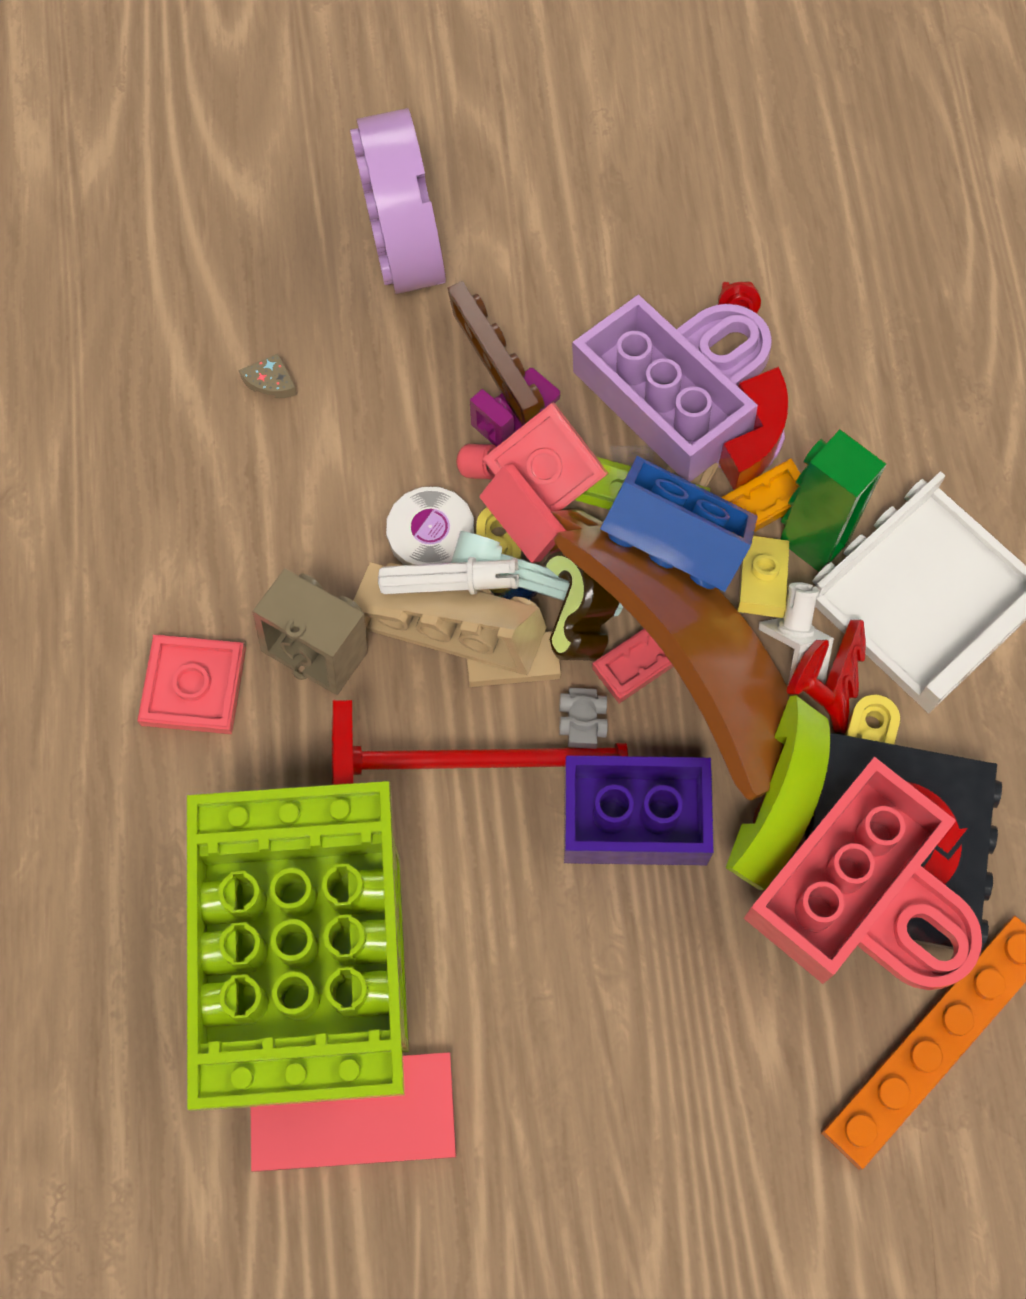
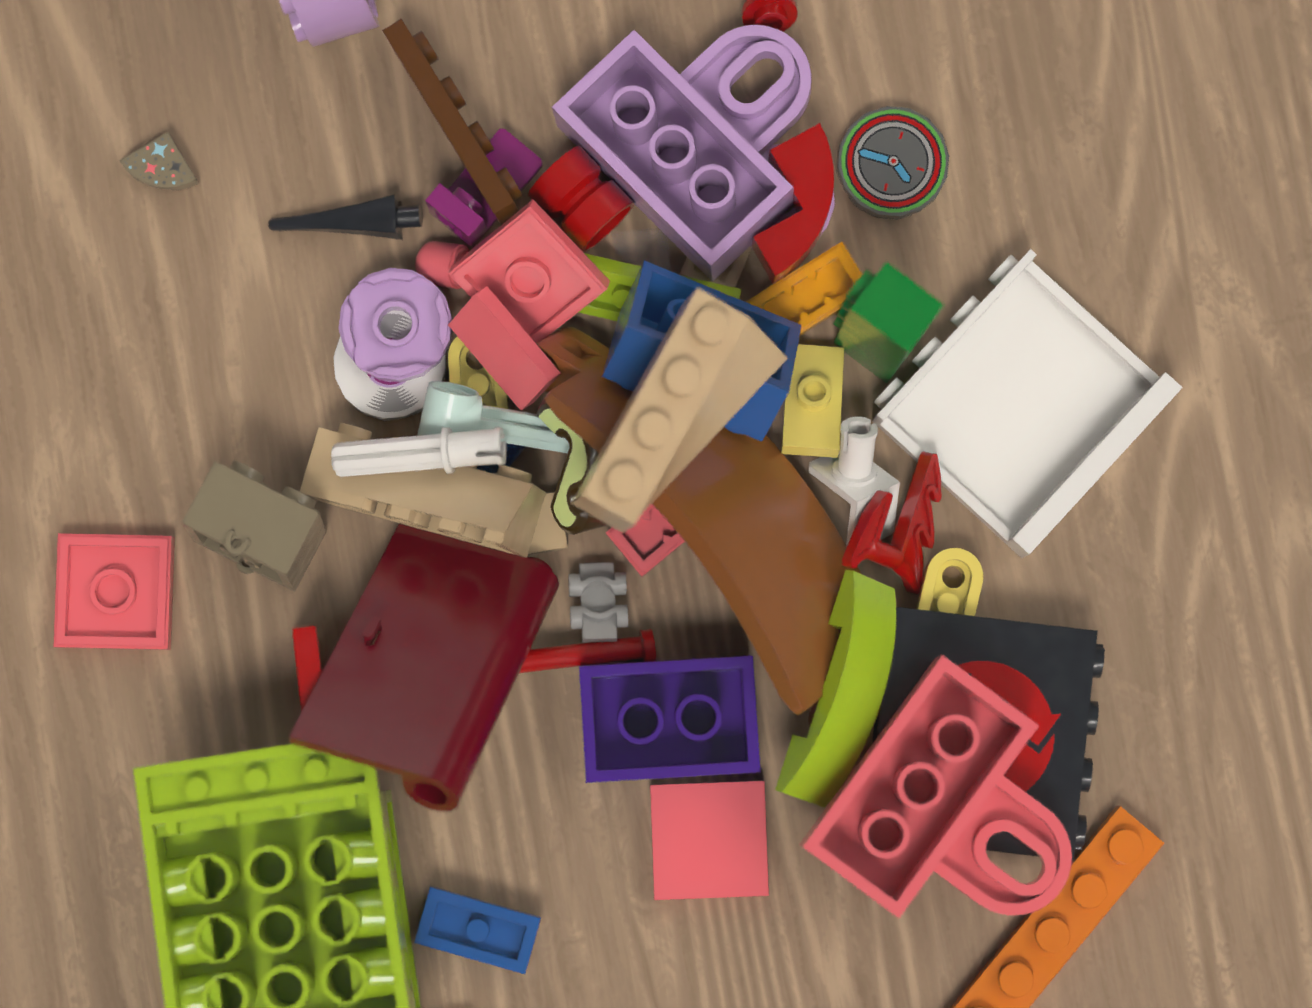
camera: 10 degrees left, 15 degrees up
(425, 424) = (376, 218): none -> black piece
(441, 742) = (441, 669): none -> dark red door
(443, 520) = (402, 358): none -> lavender tile
(462, 977) = (477, 930): none -> blue plate
(596, 421) = (578, 196): none -> red wheel
(664, 919) = (709, 840): none -> coral tile
(669, 533) = (687, 394): none -> tan wedge
(825, 405) = (892, 162): none -> tile

